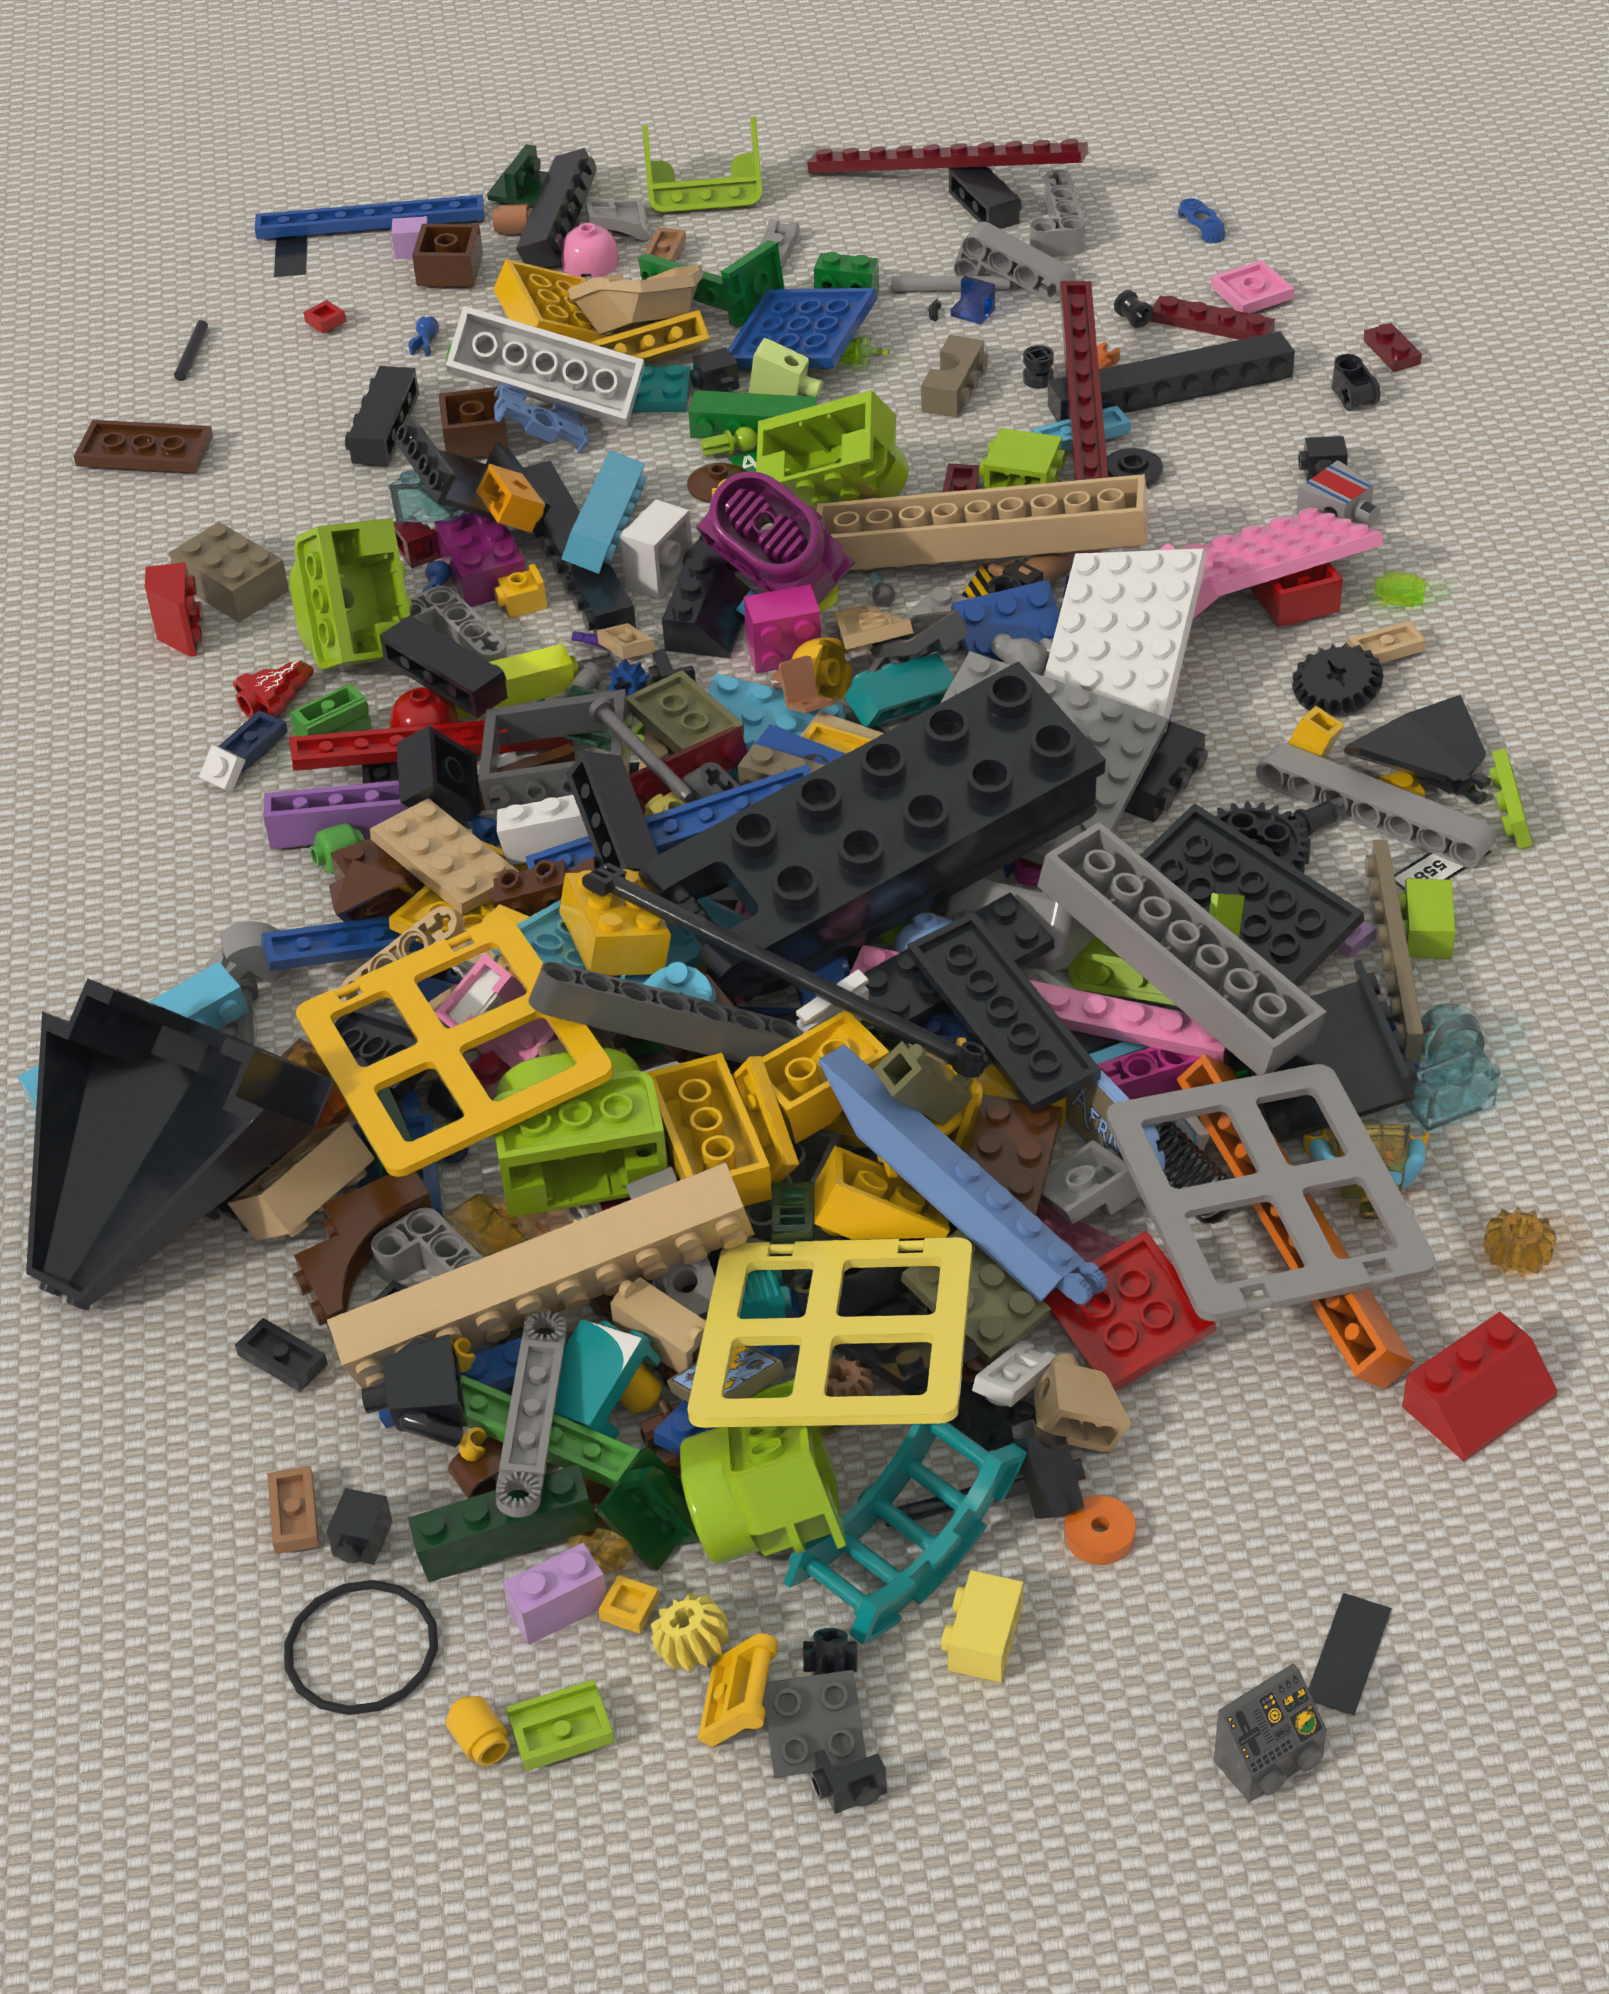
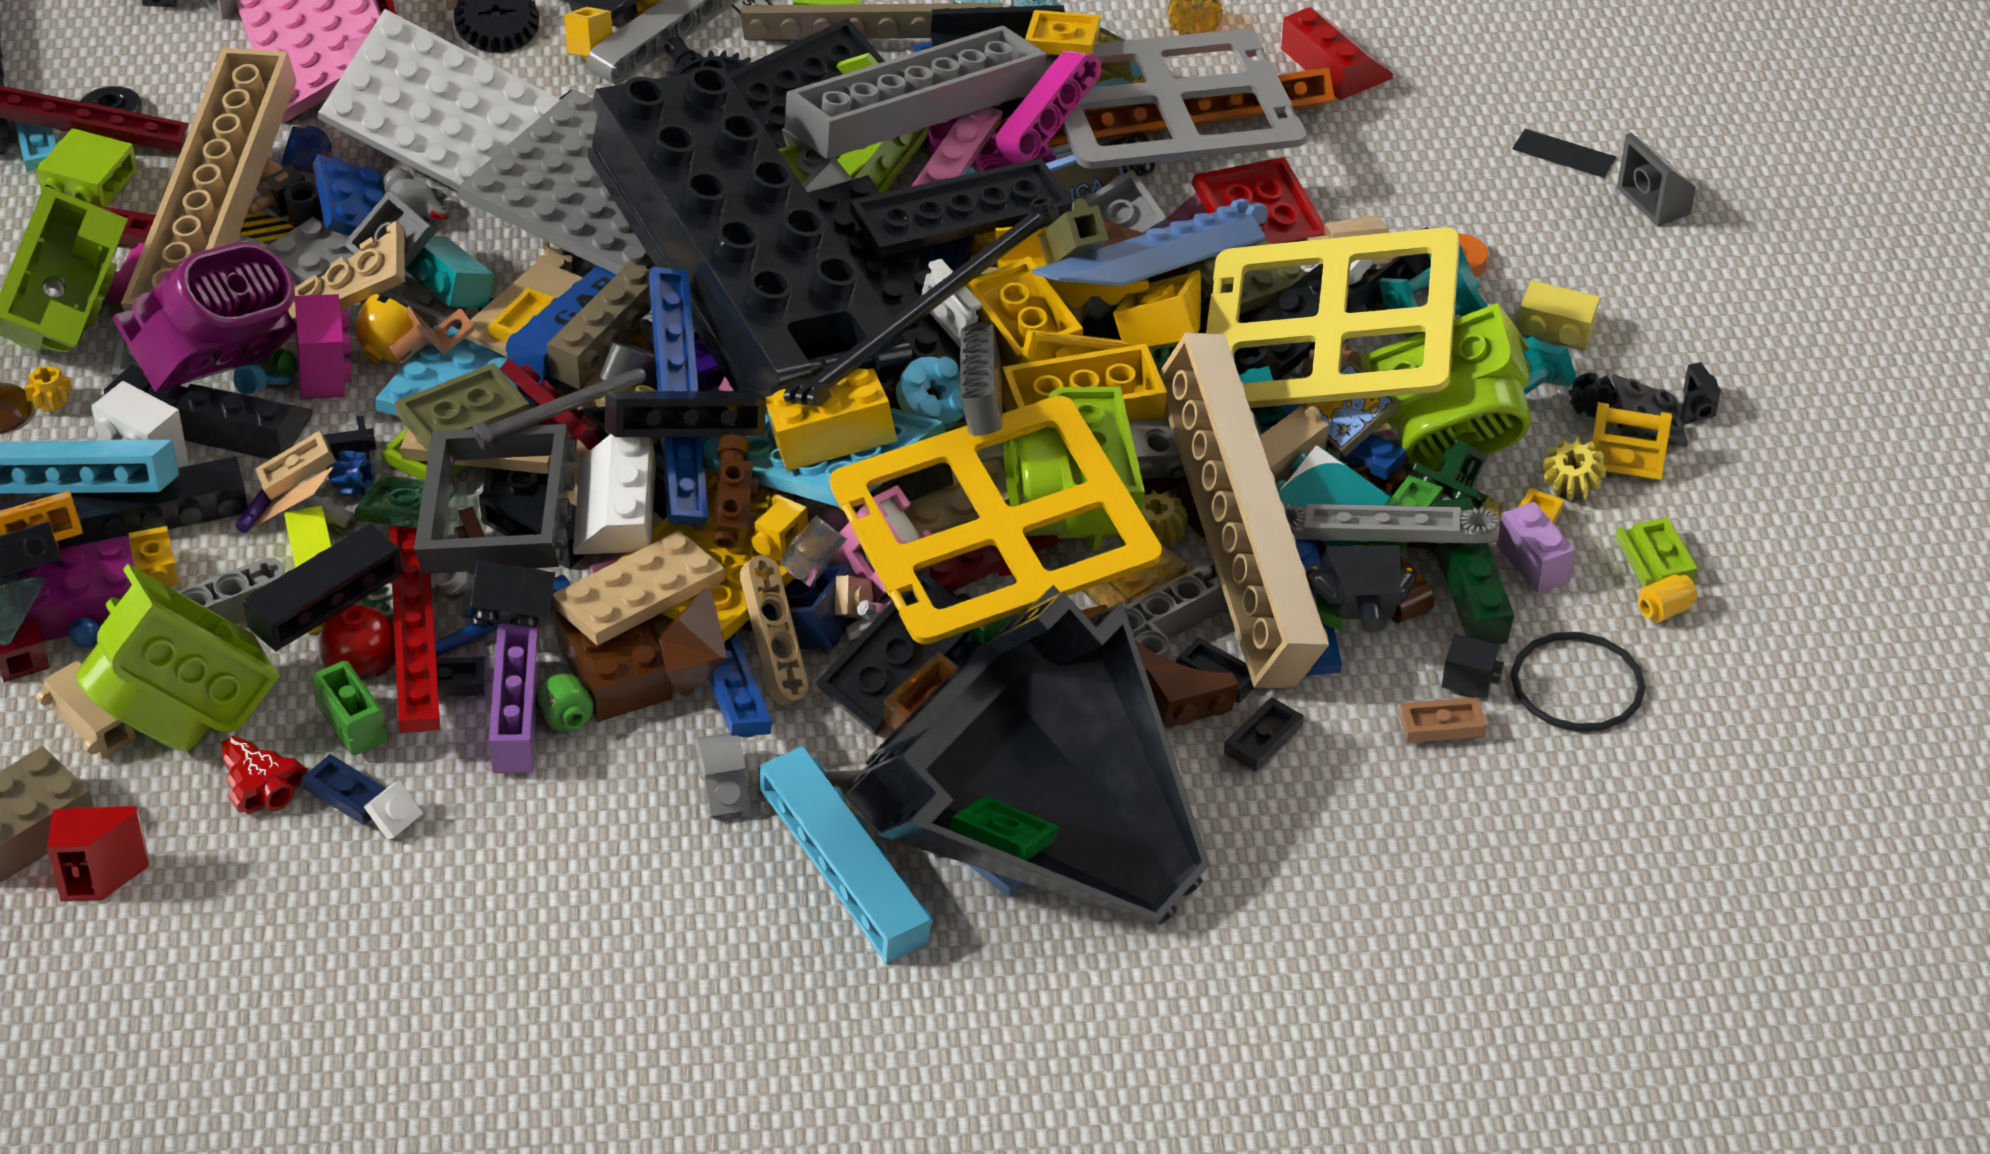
camera: 90 degrees left, 0 degrees up
(114, 1129) = (1004, 828): none -> green plate
(1164, 1063) = (1047, 108): none -> dark pink beam
(1351, 1076) = (1063, 32): none -> yellow plate

